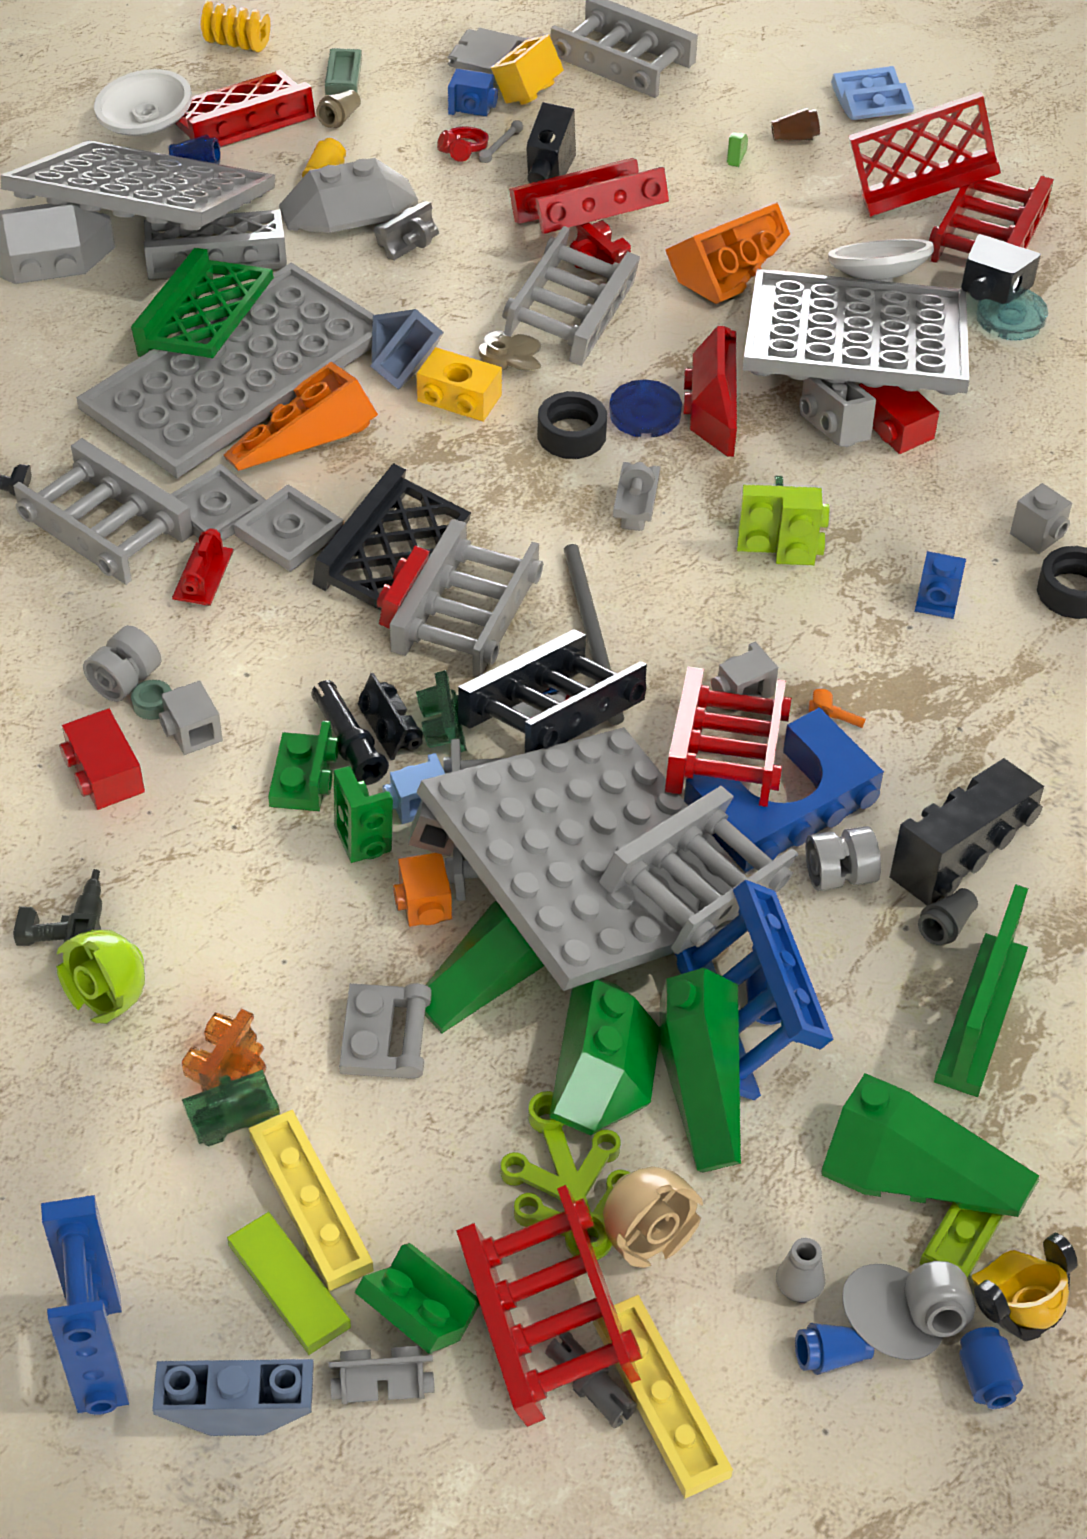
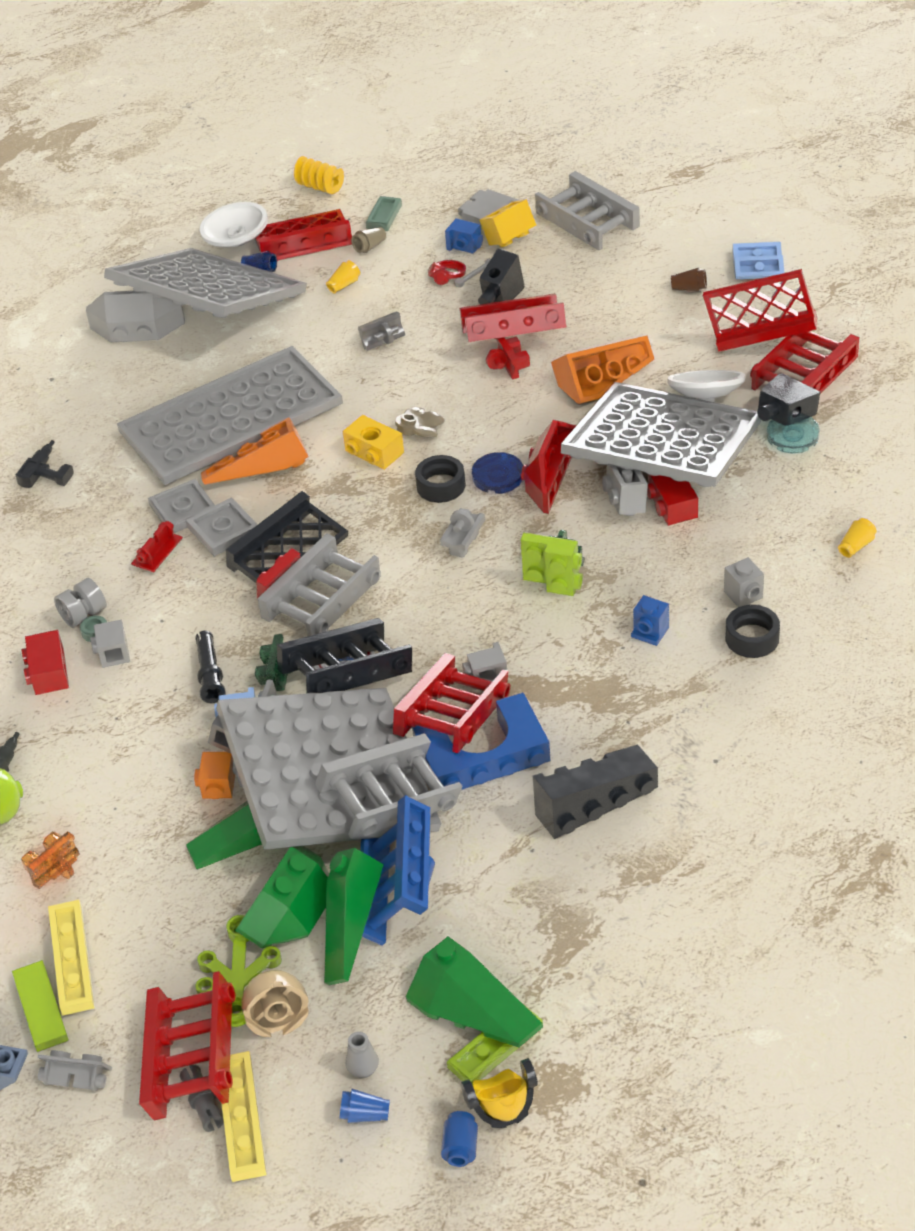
camera: 20 degrees right, 5 degrees down
(114, 482) = (121, 483): light grey fence -> none
(181, 296) = (213, 360): green fence -> none
(230, 1107) = (40, 891): clear green hips -> none
(232, 245) = (240, 333): light grey fence -> none
(303, 769) = (171, 687): green bracket -> none
(347, 197) = (350, 303): light grey wedge -> none
(361, 819) = (190, 722): green bracket -> none
(370, 1029) = (150, 856): light grey plate -> none
(387, 717) = (240, 660): black hinge -> none
(402, 344) = (341, 410): sand blue slope -> none
(420, 1299) = (111, 1029): green bracket -> none
(588, 613) = (400, 610): dark grey bar -> none
(593, 317) = (483, 406): light grey fence -> none
(737, 148) = (639, 292): bright green tile -> none
(824, 699) = (535, 695): orange hand -> none
(848, 857) = (511, 796): light grey wheel -> none
(880, 1312) = (412, 1092): light grey sticker -> none
(939, 1298) = (441, 1089): light grey head -> none
(945, 919) = (558, 846): dark grey cone -> none
(984, 1004) = (557, 901): green fence -> none

